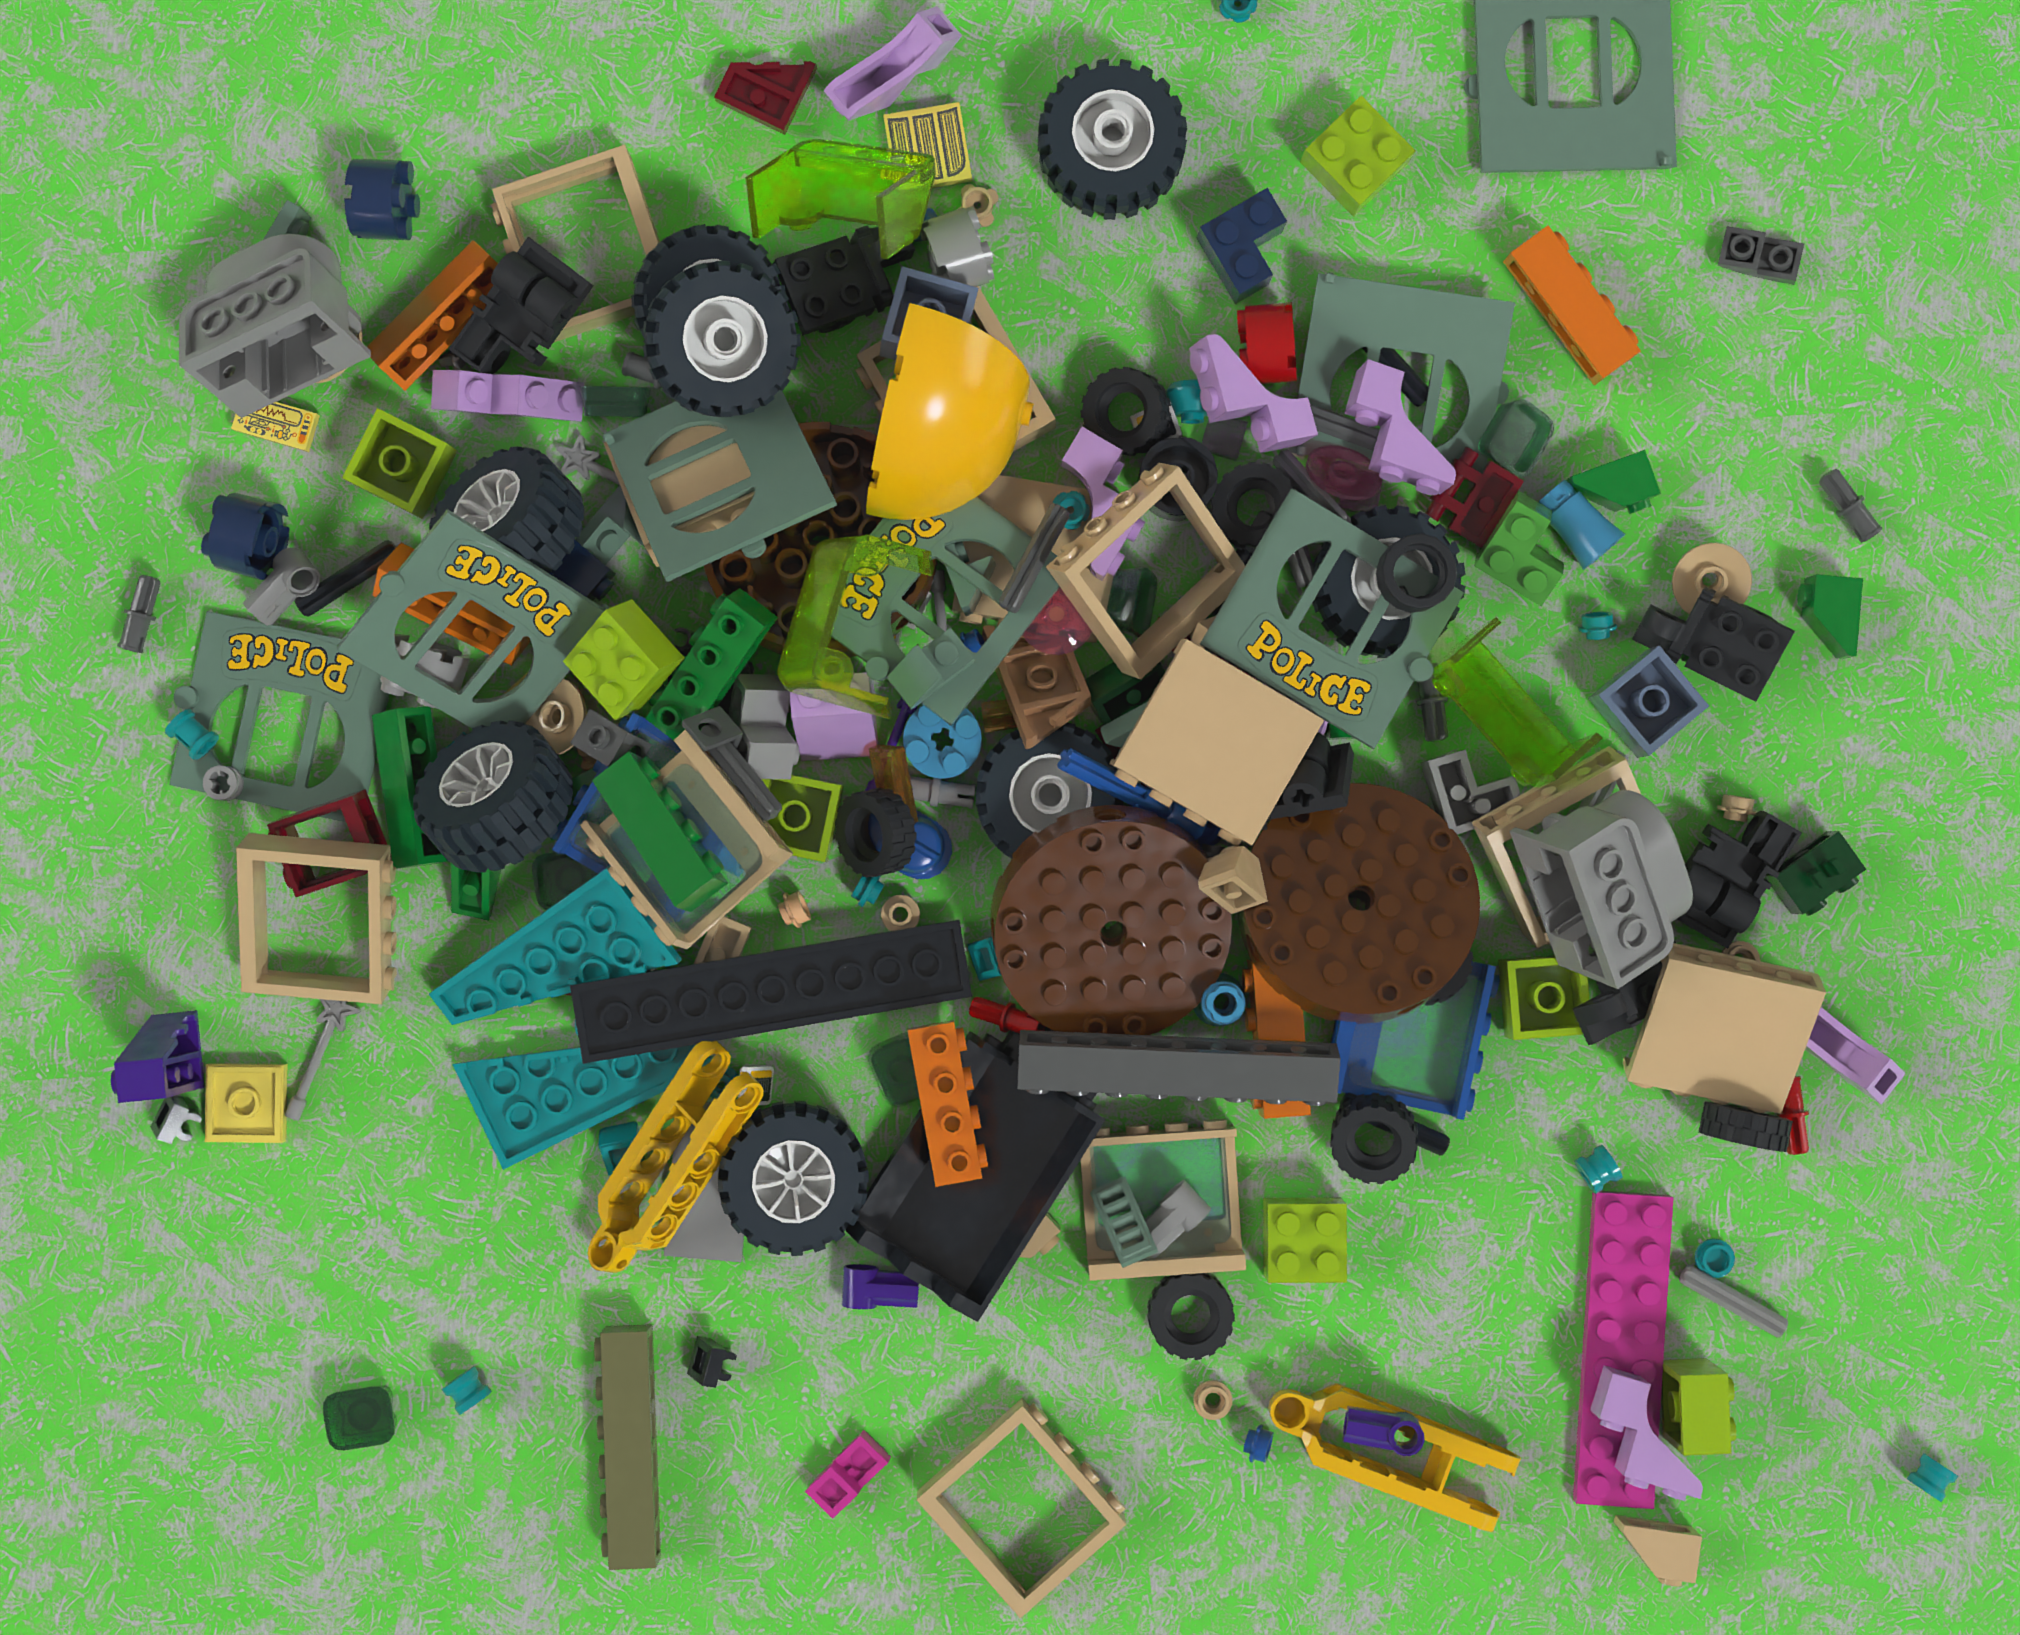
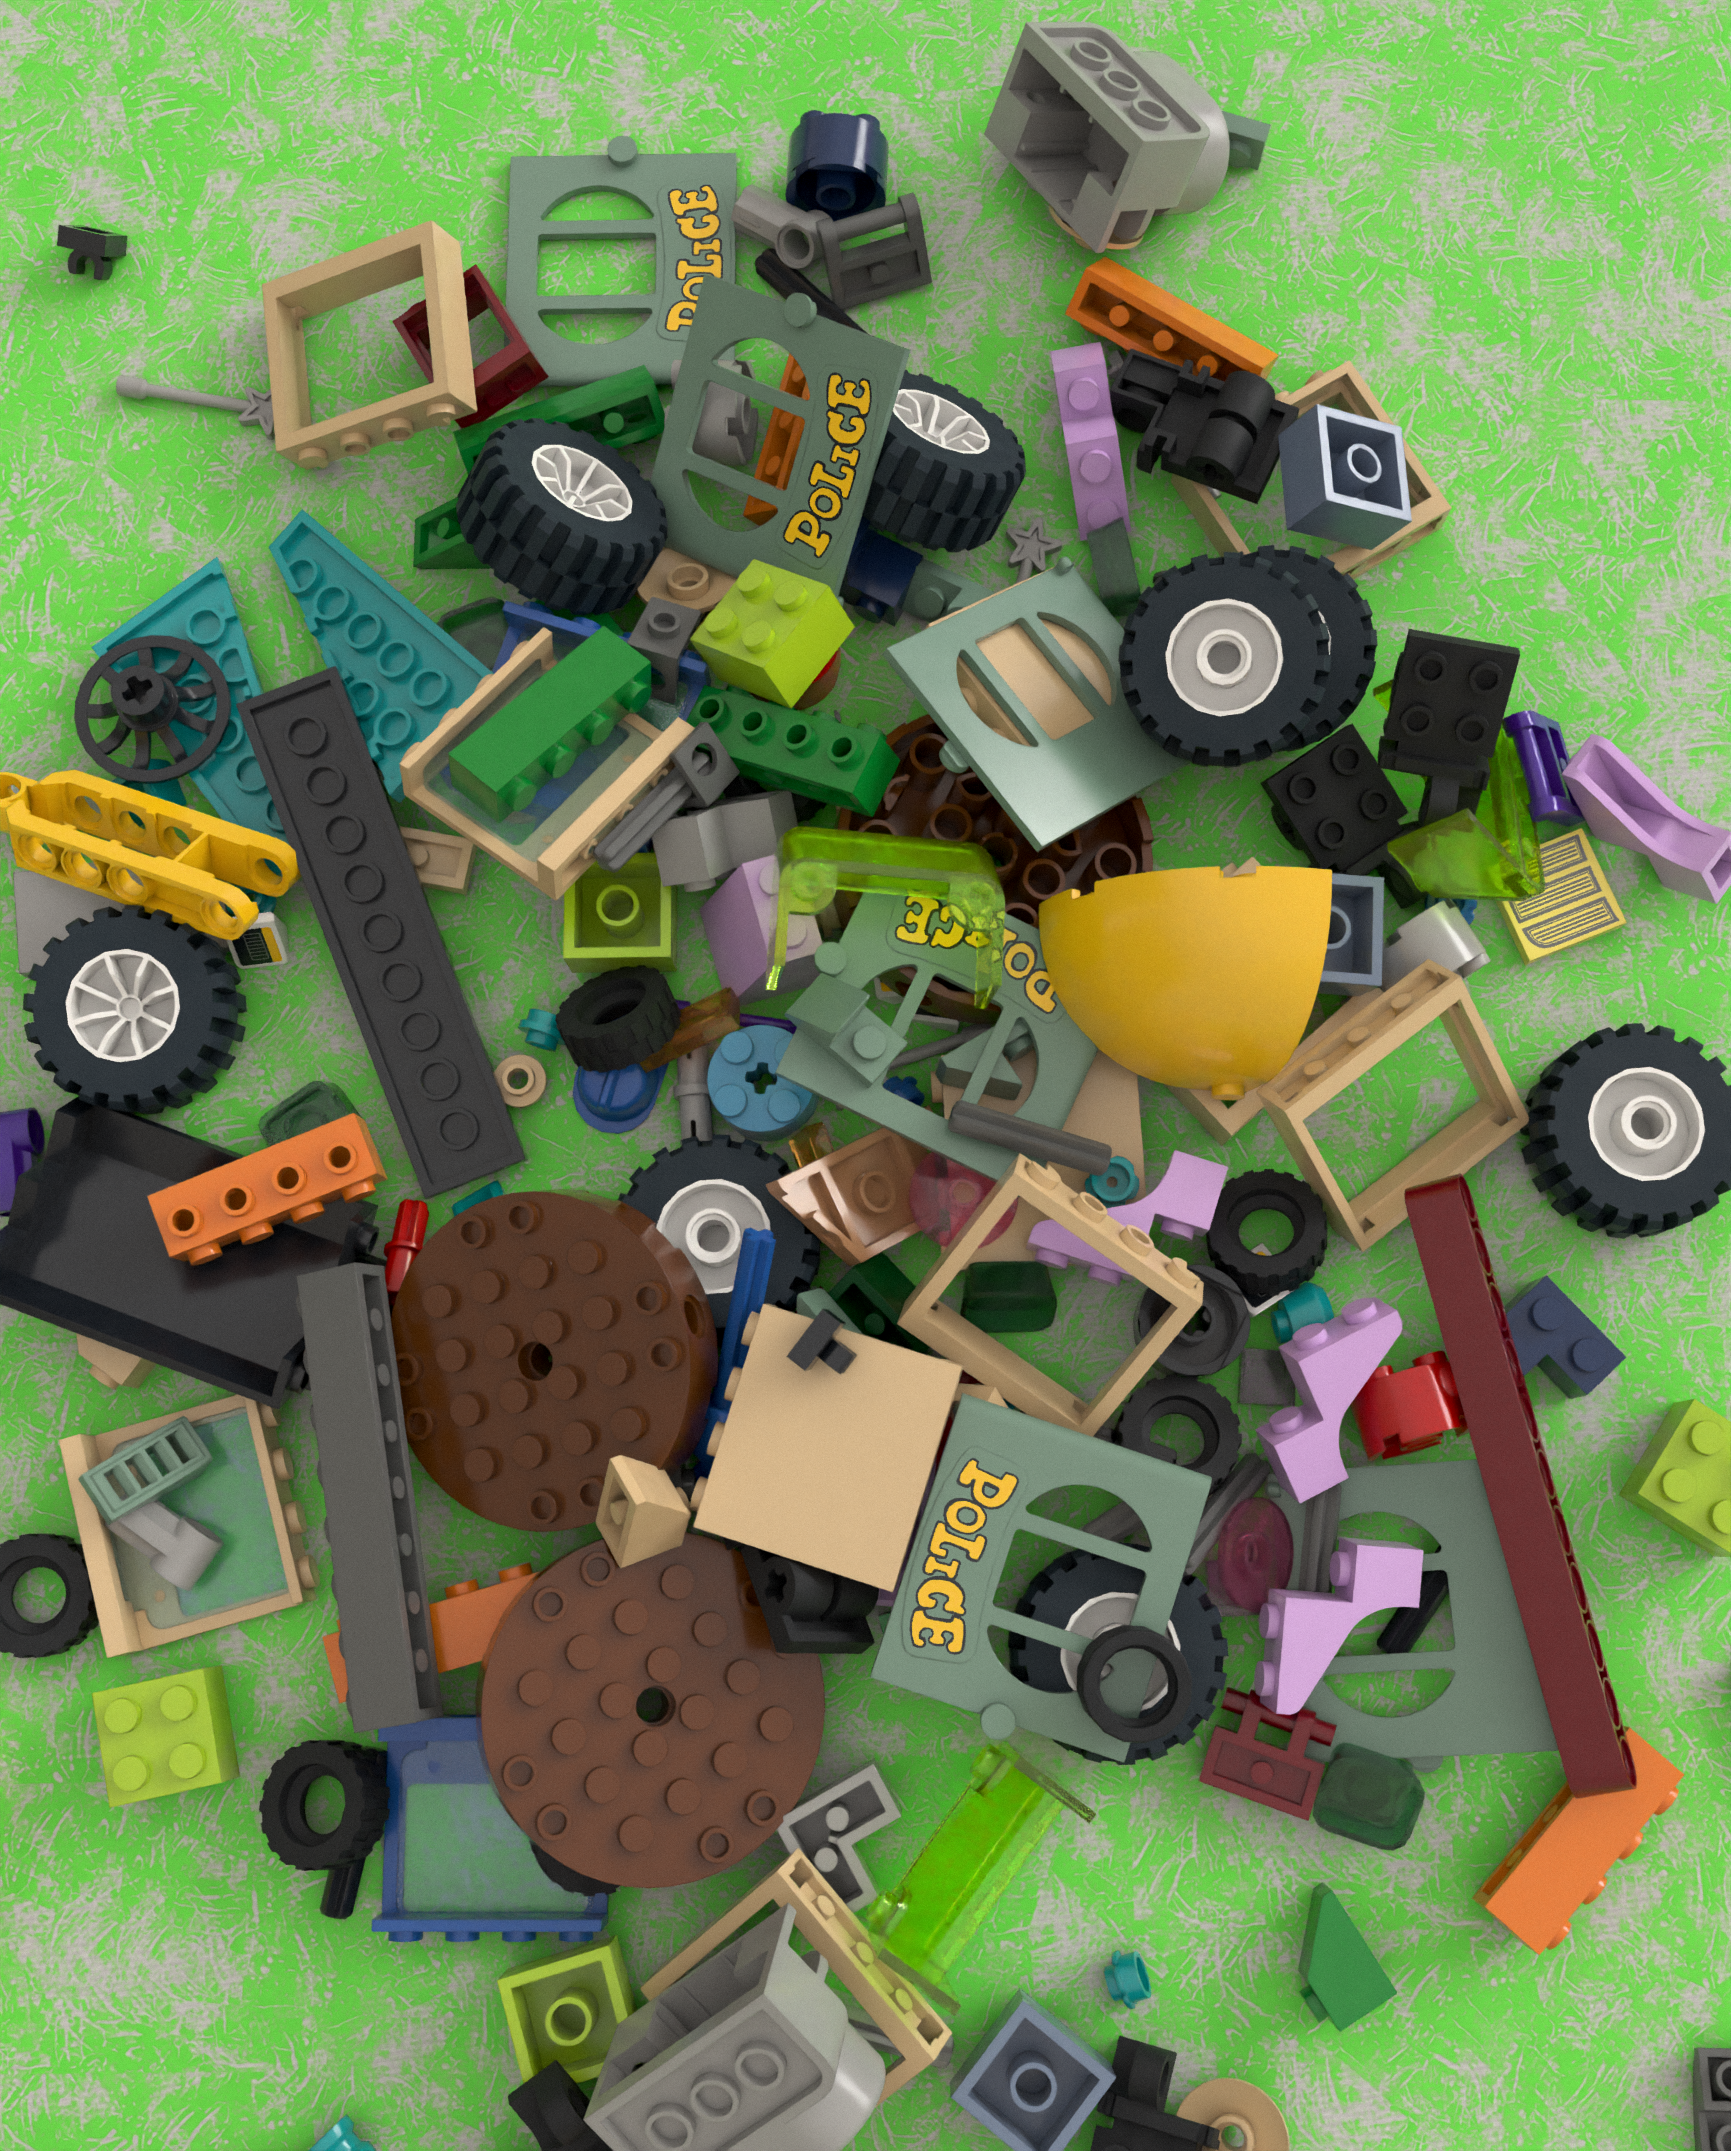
camera: 85 degrees right, 10 degrees down
(139, 614) = (714, 76): dark grey axle -> none
(160, 1059) = (154, 205): dark purple wedge -> none
(191, 734) = (576, 162): teal bush -> none
(211, 785) = (518, 200): light grey bush -> none
(246, 1103) = (129, 328): light yellow tile -> none
(280, 425) = (988, 186): light yellow tile -> none
(330, 522) = (879, 266): none -> dark grey plate
(381, 199) = (1300, 232): dark blue brick -> none
(399, 463) = (970, 327): lime brick -> none
(563, 1131) = (149, 704): none -> black wheel
(593, 217) = (1344, 477): none -> sand blue brick
(766, 91) = (1570, 675): dark red wing -> none
(794, 909) = (499, 942): light nougat plate -> none
(797, 192) = (1447, 717): none -> black plate
(833, 129) = (1542, 761): none -> dark purple plate
(987, 199) = (1507, 987): tan plate -> none
(1022, 317) = (1356, 1048): none -> tan window
(1152, 729) = (821, 1343): none -> black tile
(1232, 1012) = (500, 1550): dark azure plant -> none
(1335, 283) = (1520, 1489): none -> dark red beam
(1433, 710) = (950, 1759): dark grey axle -> none
(1512, 552) = (1196, 1829): bright green brick -> none
(1580, 524) = (1266, 1918): dark azure plant -> none

